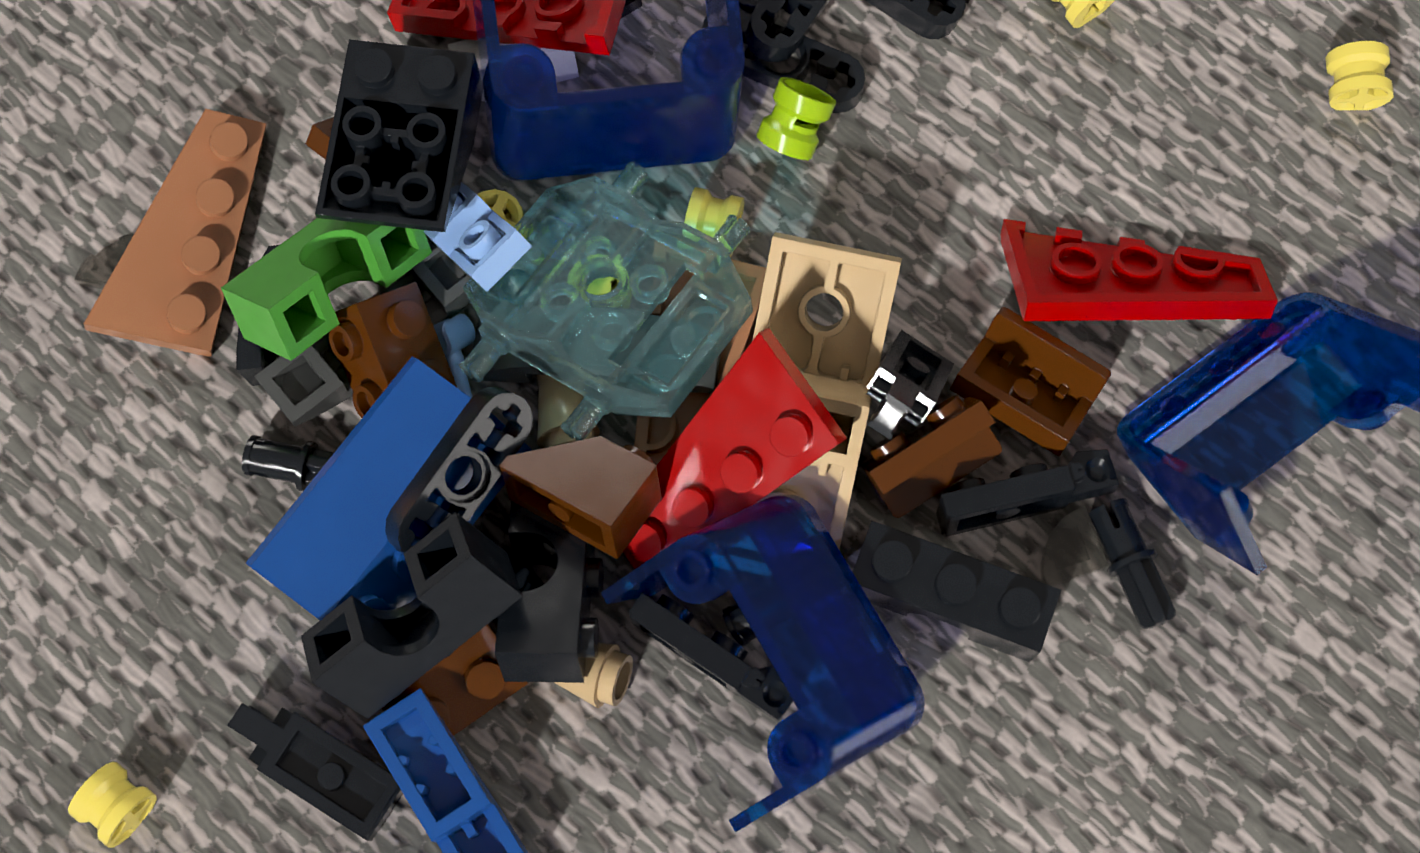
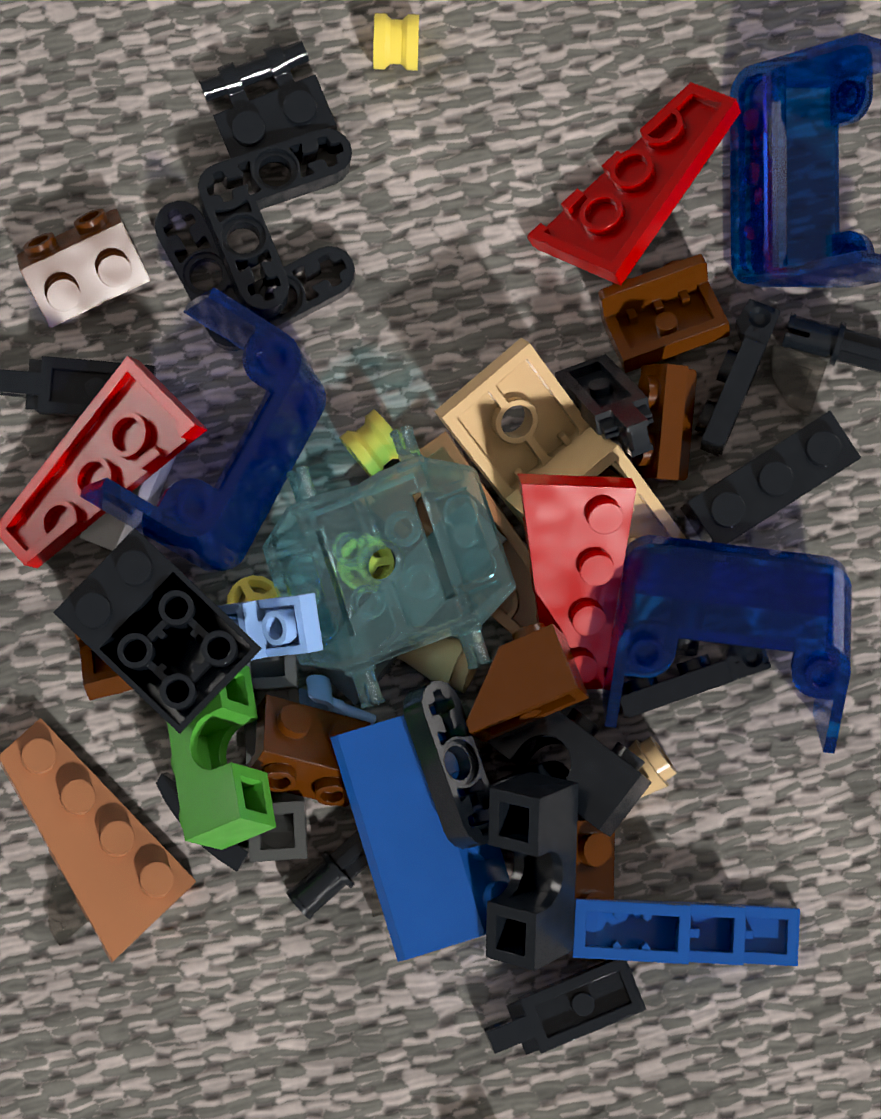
camera: 65 degrees left, 10 degrees up
(795, 118) = (341, 323): lime wheel -> none

